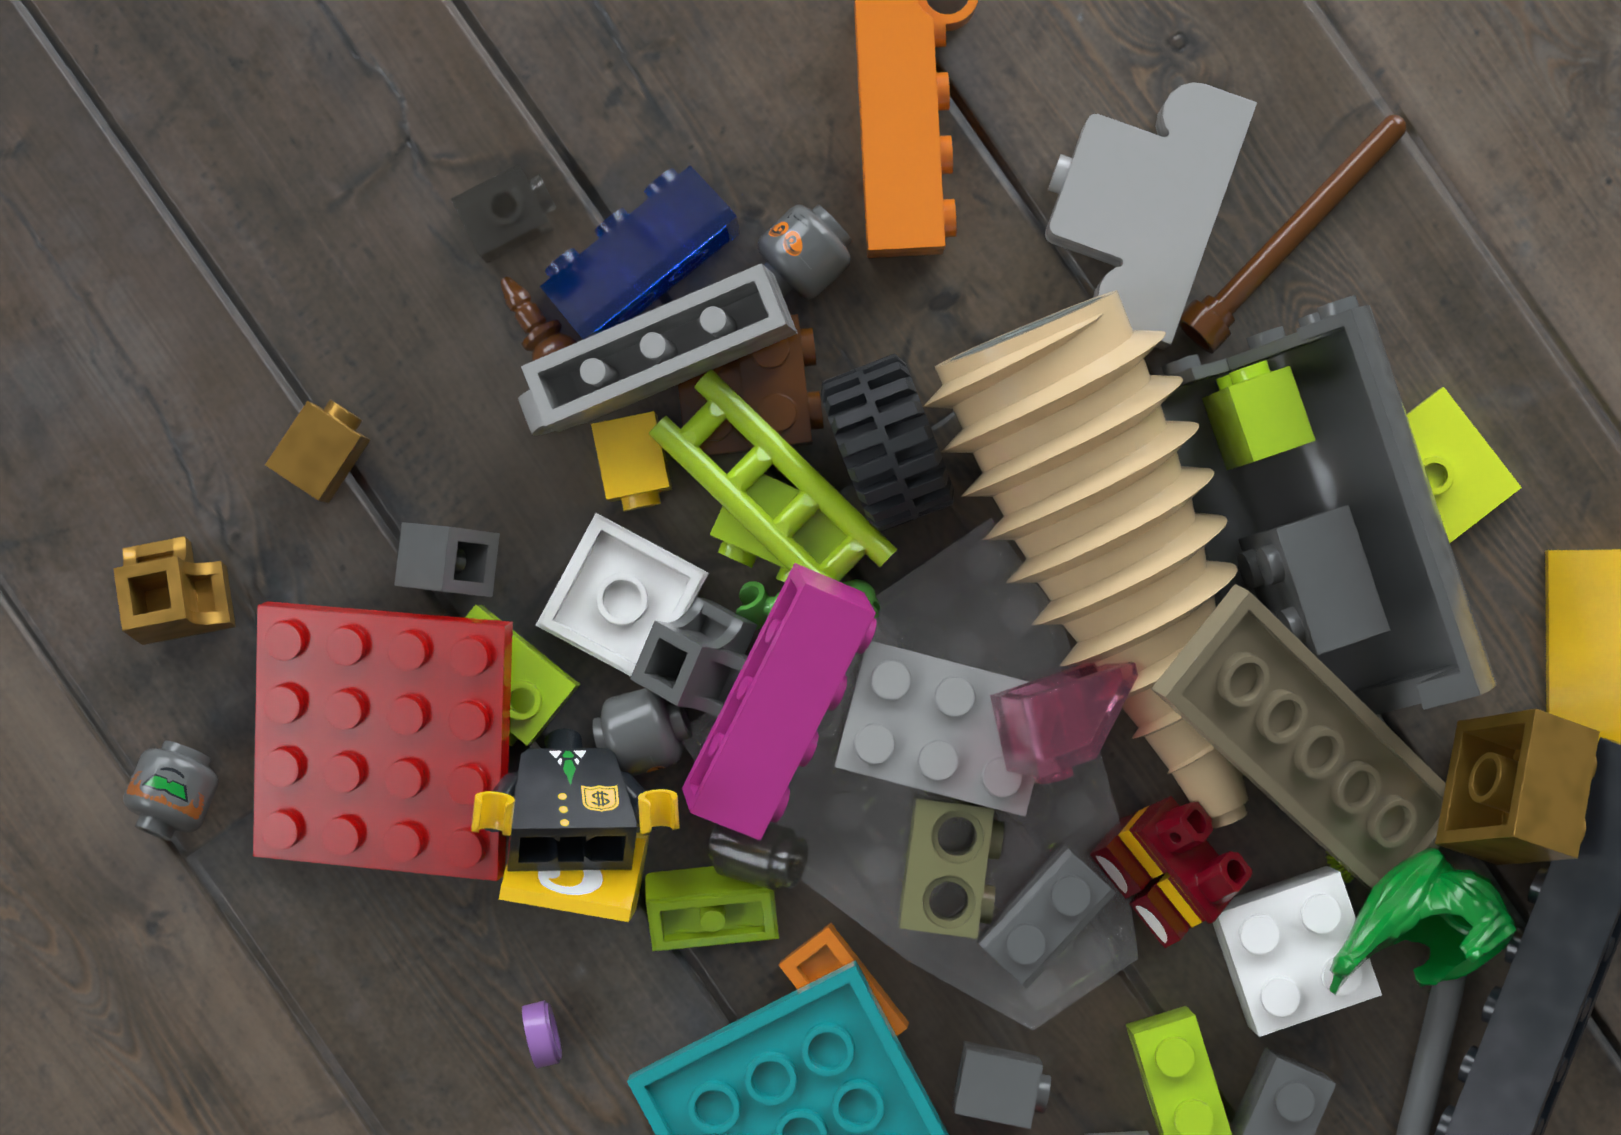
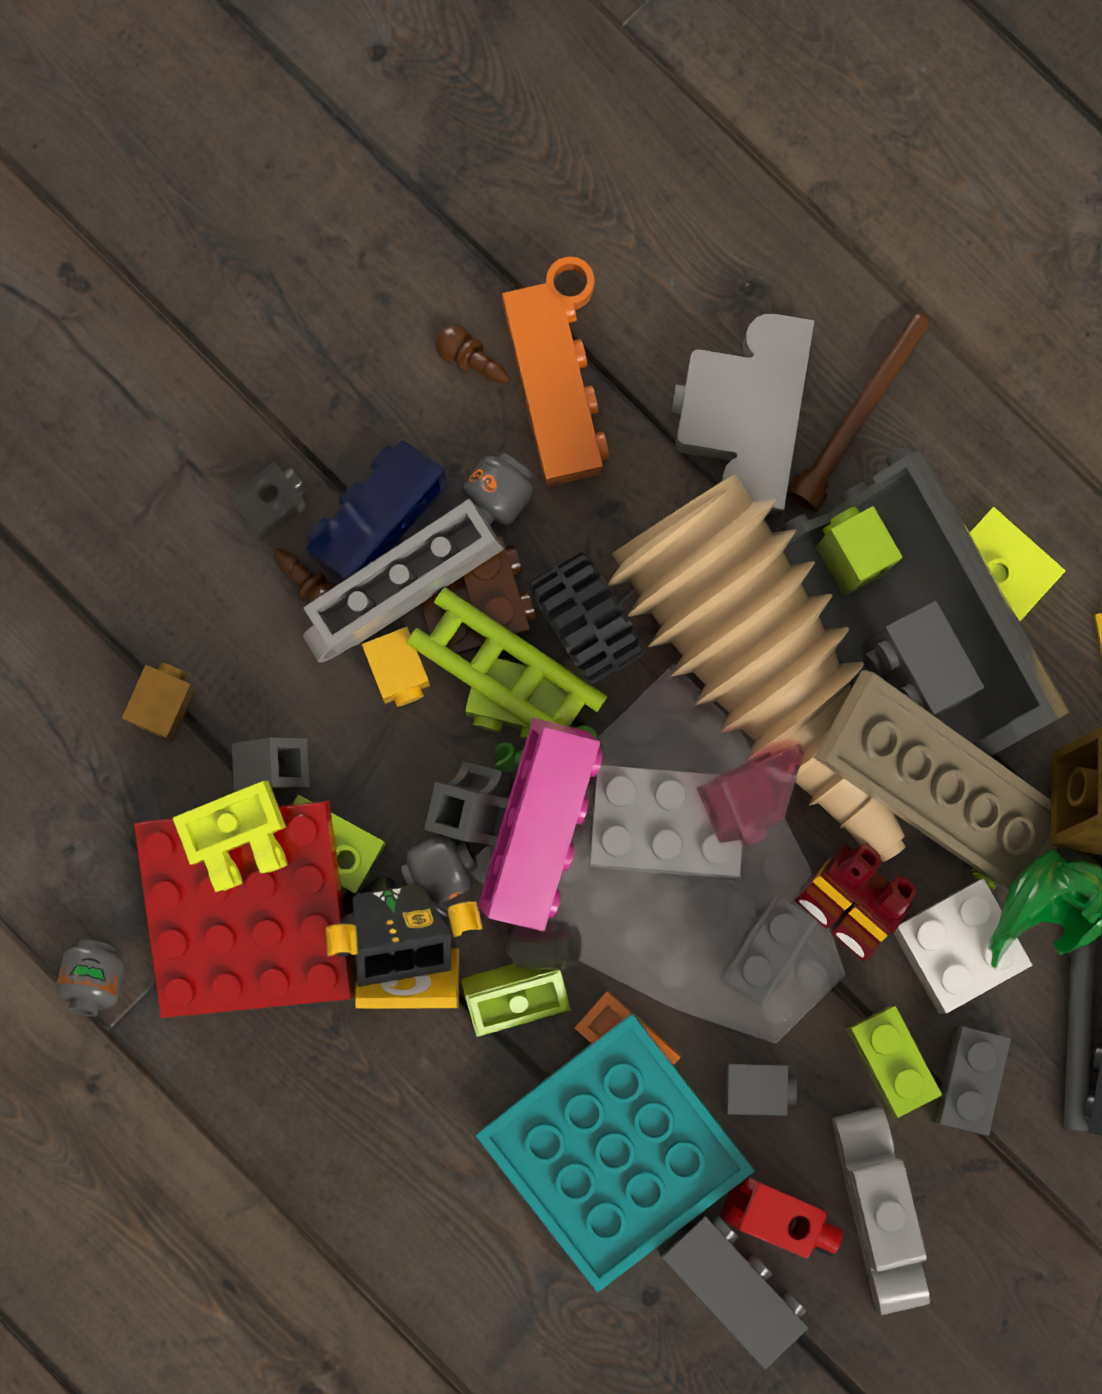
camera: 15 degrees left, 5 degrees down
(169, 595) = (66, 829): pearl gold brick -> none
(379, 631) = (230, 823): none -> neon yellow plate
(542, 1034) = (404, 1113): medium lavender tile -> none
(617, 592) = (402, 768): white plate -> none
(786, 53) = (457, 346): none -> reddish brown bar
(931, 865) = (675, 927): olive brick -> none

